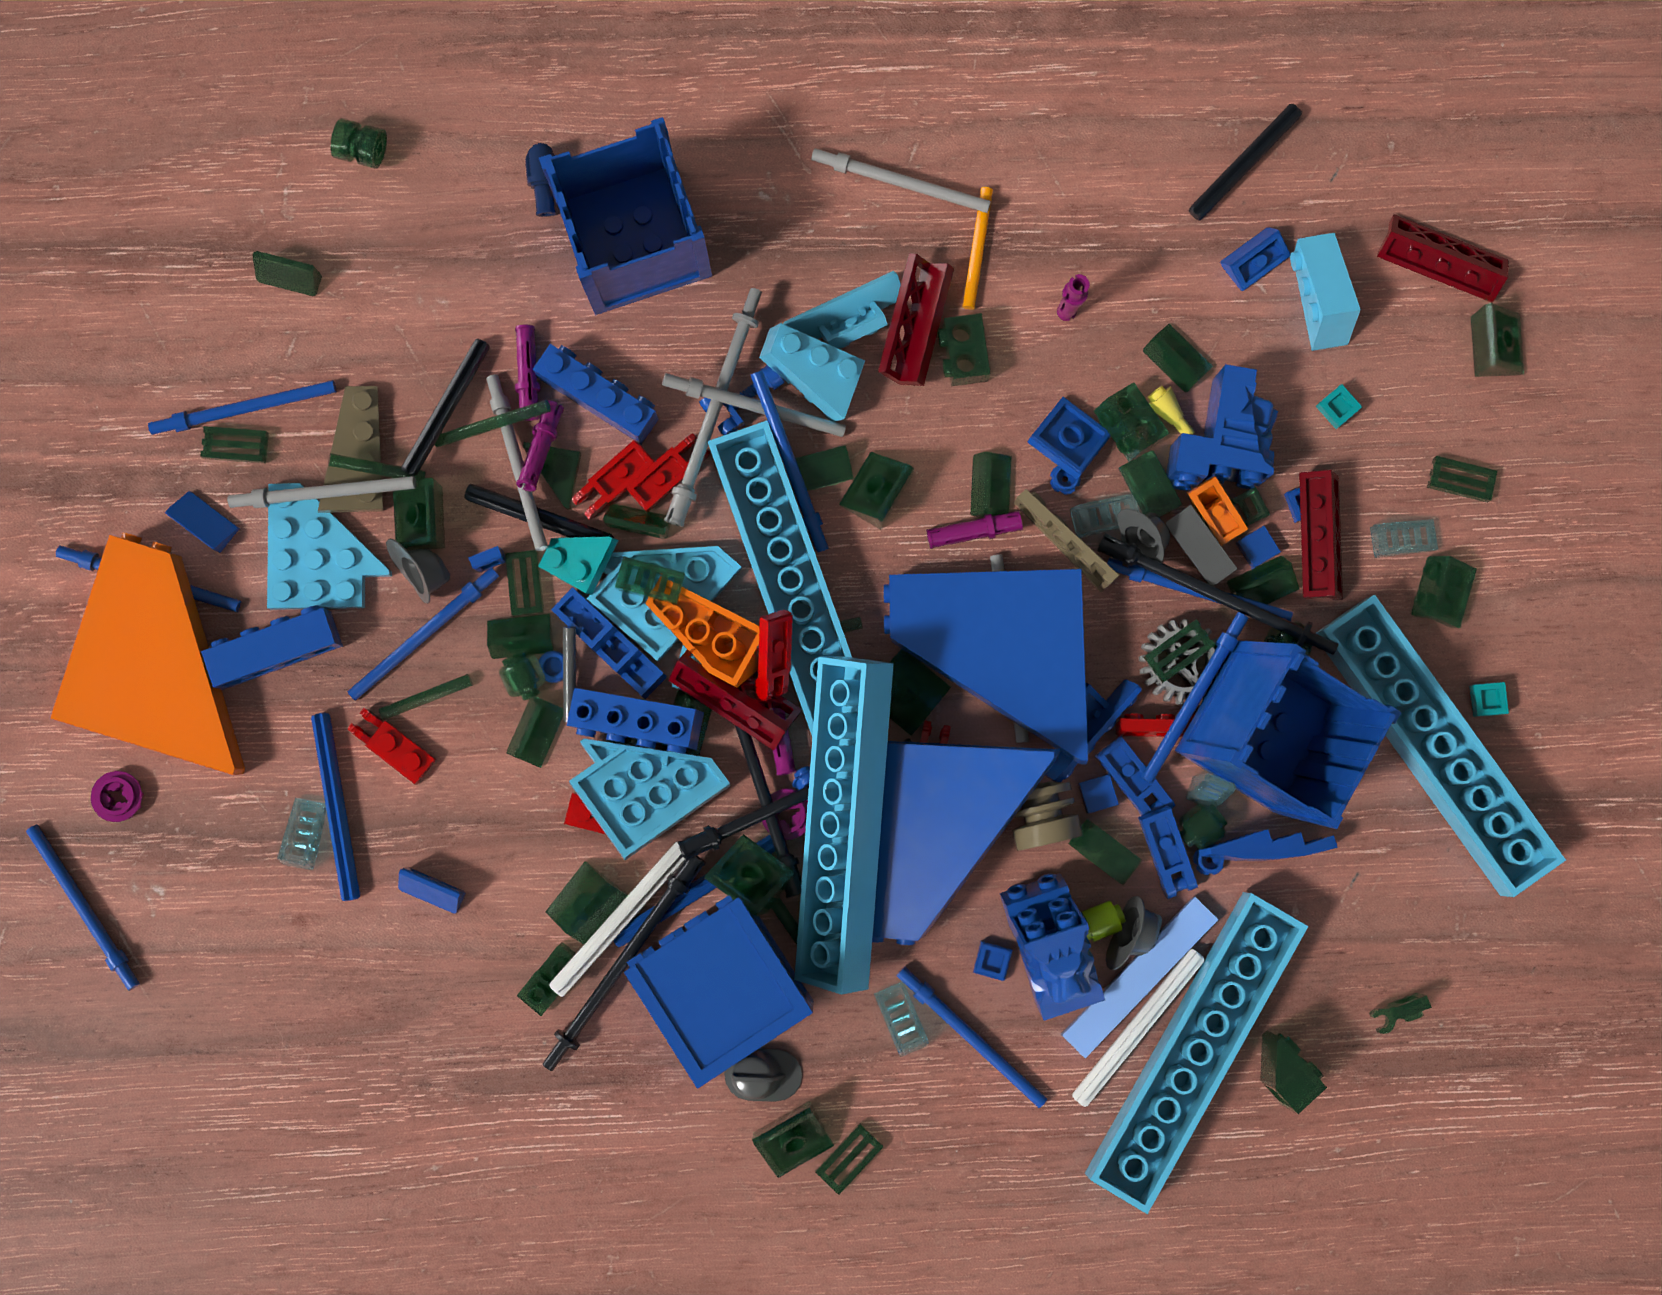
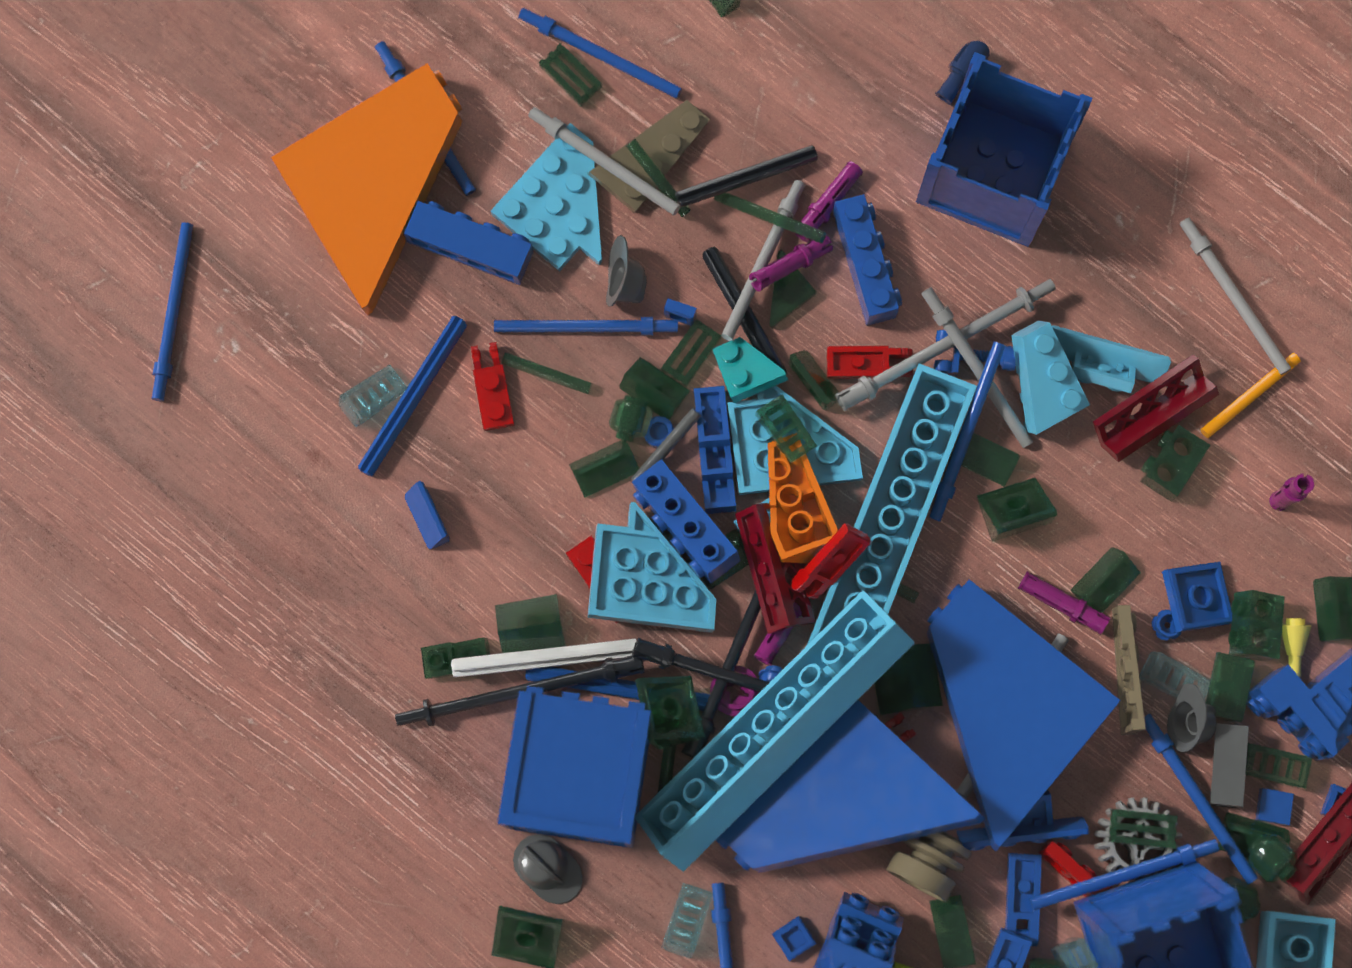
camera: 45 degrees right, 5 degrees down
(103, 802) = (253, 248): magenta gear -> none
(202, 521) = (499, 110): blue slope -> none
(420, 516) = (658, 238): clear green slope -> none
(614, 478) = (825, 332): red hinge -> none
(1098, 794) = (985, 884): blue tile -> none
(1132, 556) = (1169, 726): black bar -> none
(1217, 510) = (1266, 749): orange slope -> none
(1291, 588) = (1272, 858): none -> clear green head

